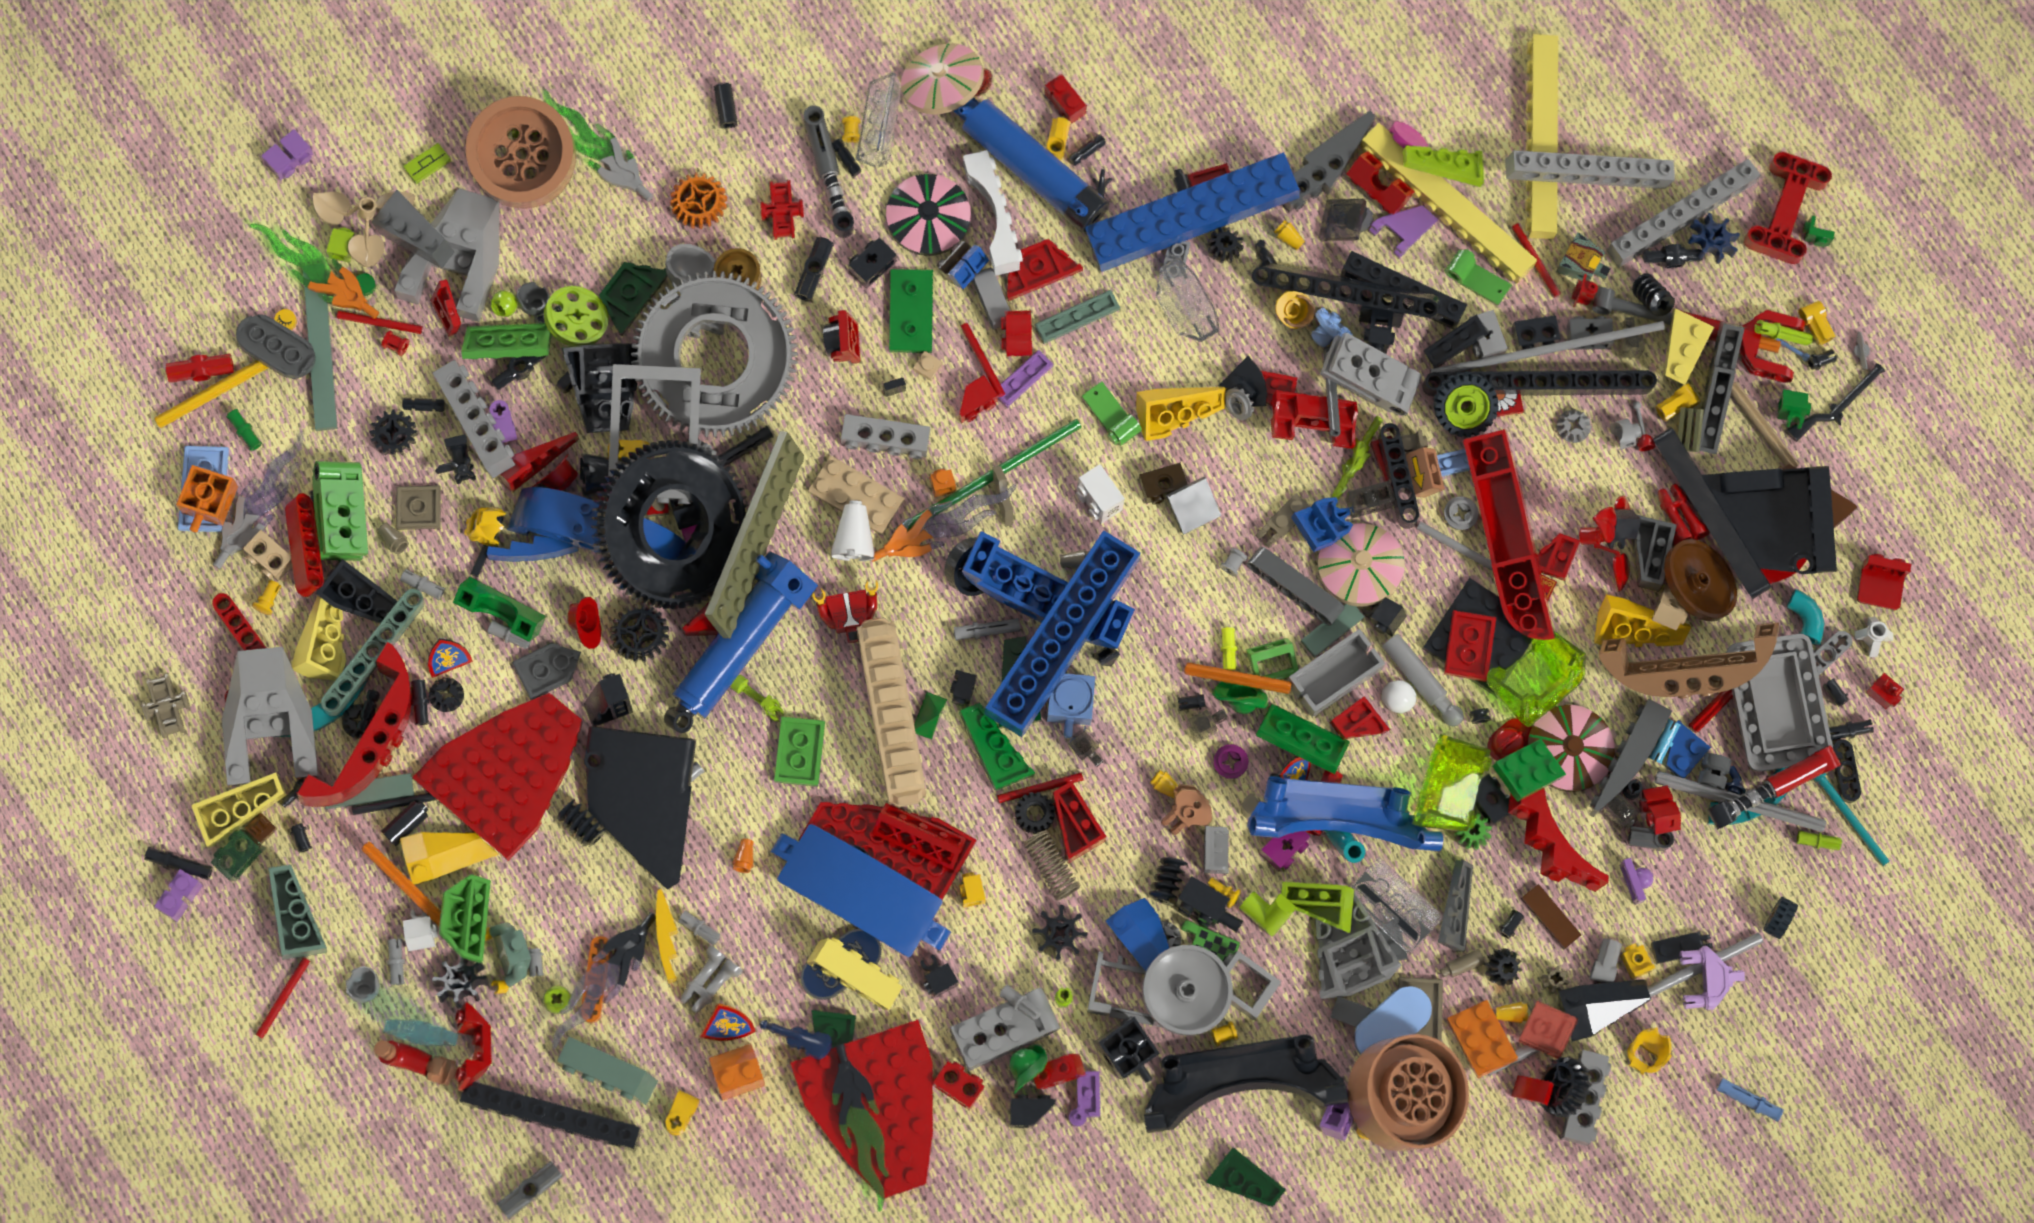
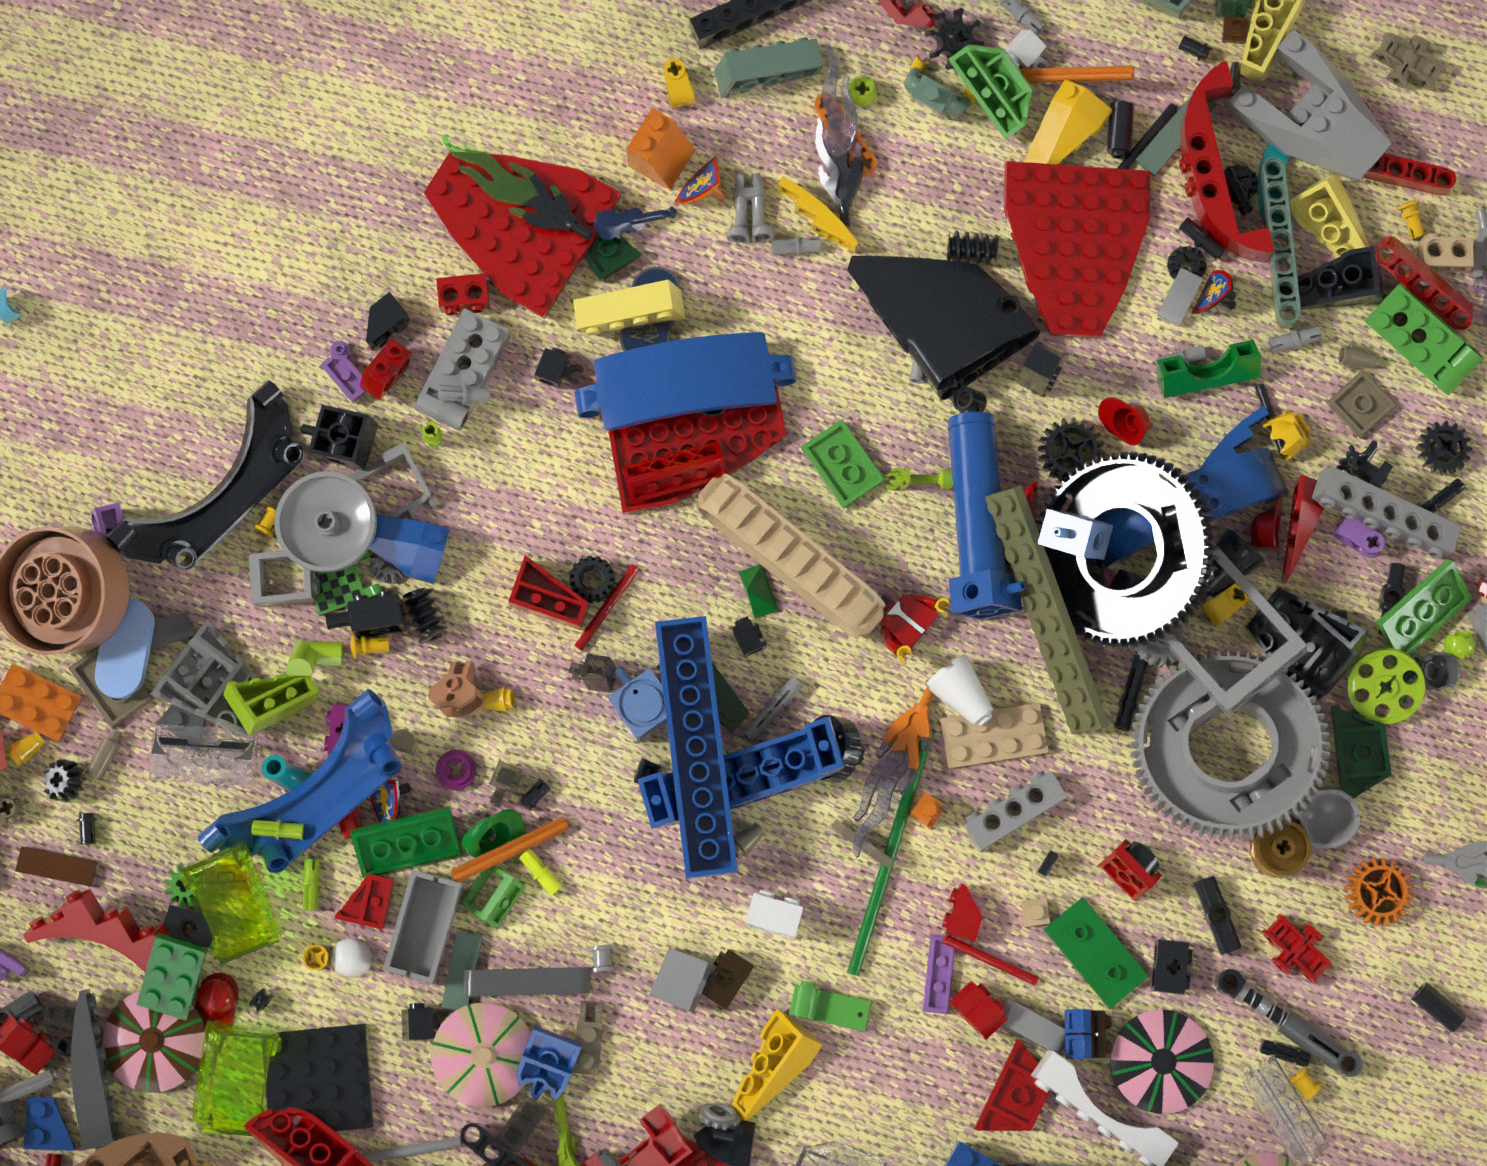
camera: 145 degrees right, 5 degrees up
(472, 673) = (1180, 297): none -> light grey slope
(536, 962) = (909, 108): light grey pin -> none
(546, 669) = (1122, 356): dark grey tile -> none
(697, 555) = (1075, 534): none -> piece
(744, 857) = (811, 335): orange cone -> none
(972, 890) = (590, 466): yellow brick -> none
(997, 755) = (662, 601): green wing -> none
(1027, 1064) = (415, 351): green hat -> none
(1039, 838) = (505, 534): dark tan piece -> none
(1066, 941) = (476, 484): black gear -> none
(1077, 316) = (940, 1078): sand green tile -> none
(1216, 850) = (404, 677): light grey hinge -> none
(1246, 1179) = (154, 415): dark green wing -> none
(1383, 813) = (278, 829): none -> lime axle
(1388, 764) = (311, 884): none -> lime axle
(1422, 679) = (340, 990): light grey piece -> none
(1424, 710) = (312, 957): none -> yellow wheel
(1455, 918) = (141, 793): dark grey wing -> none
(1469, 645) = (320, 1057): red tile -> none
(1665, 741) = (69, 1119): medium azure pin -> none

